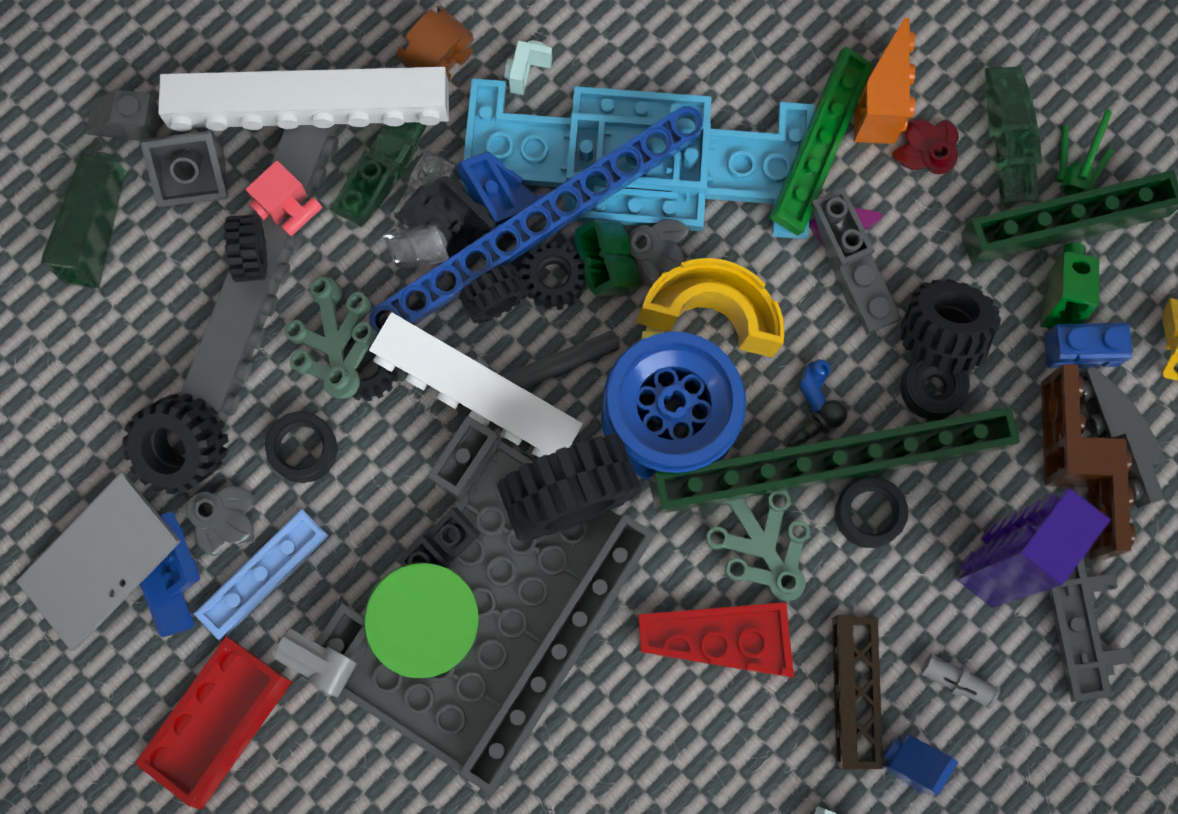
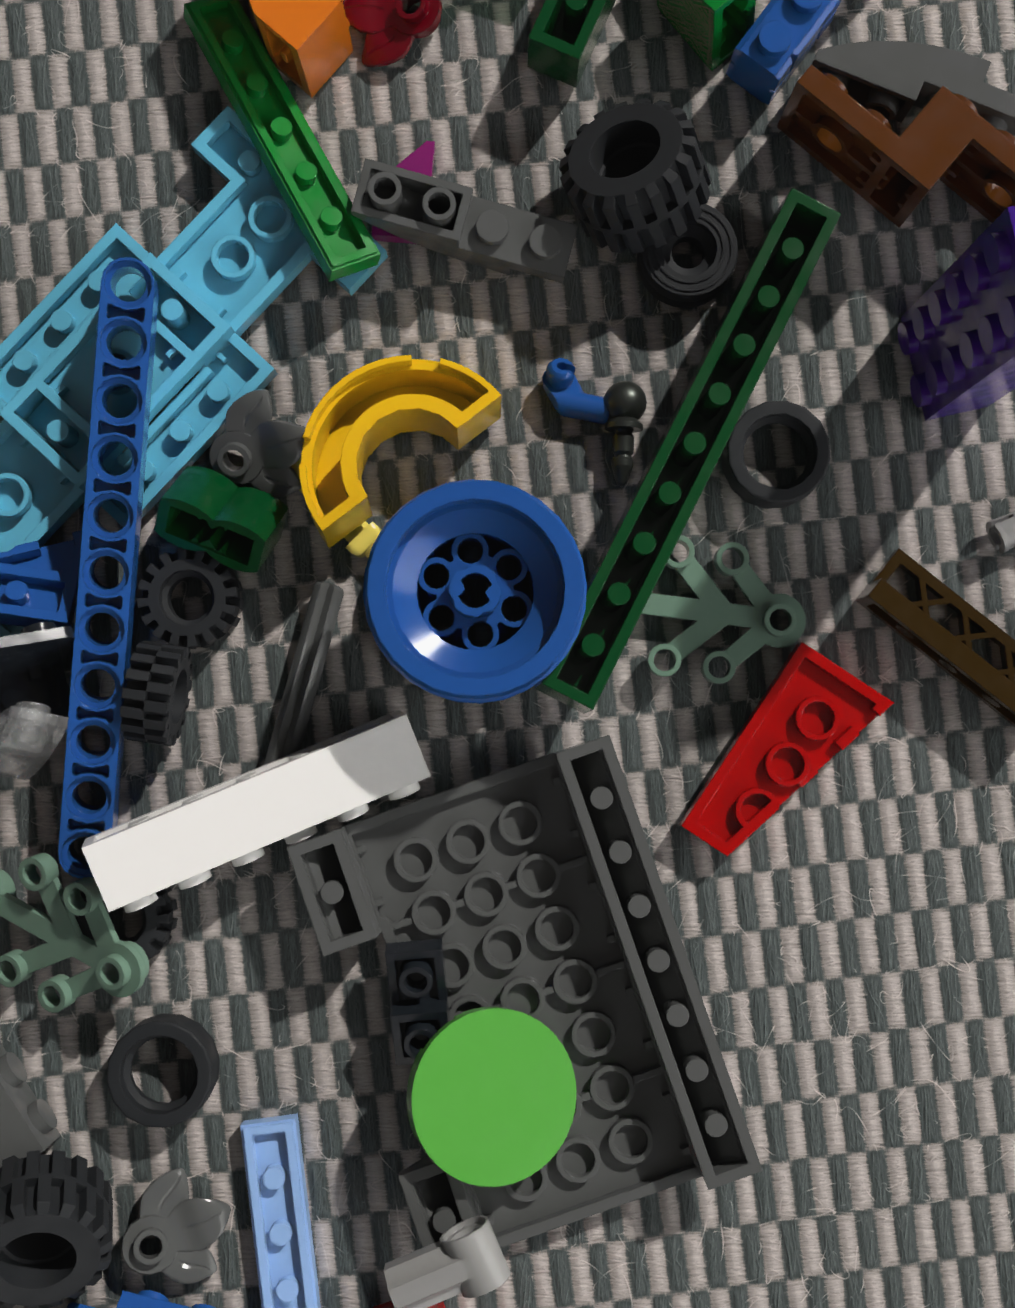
camera: 50 degrees left, 10 degrees up
(568, 487) = (479, 804): black tyre -> none

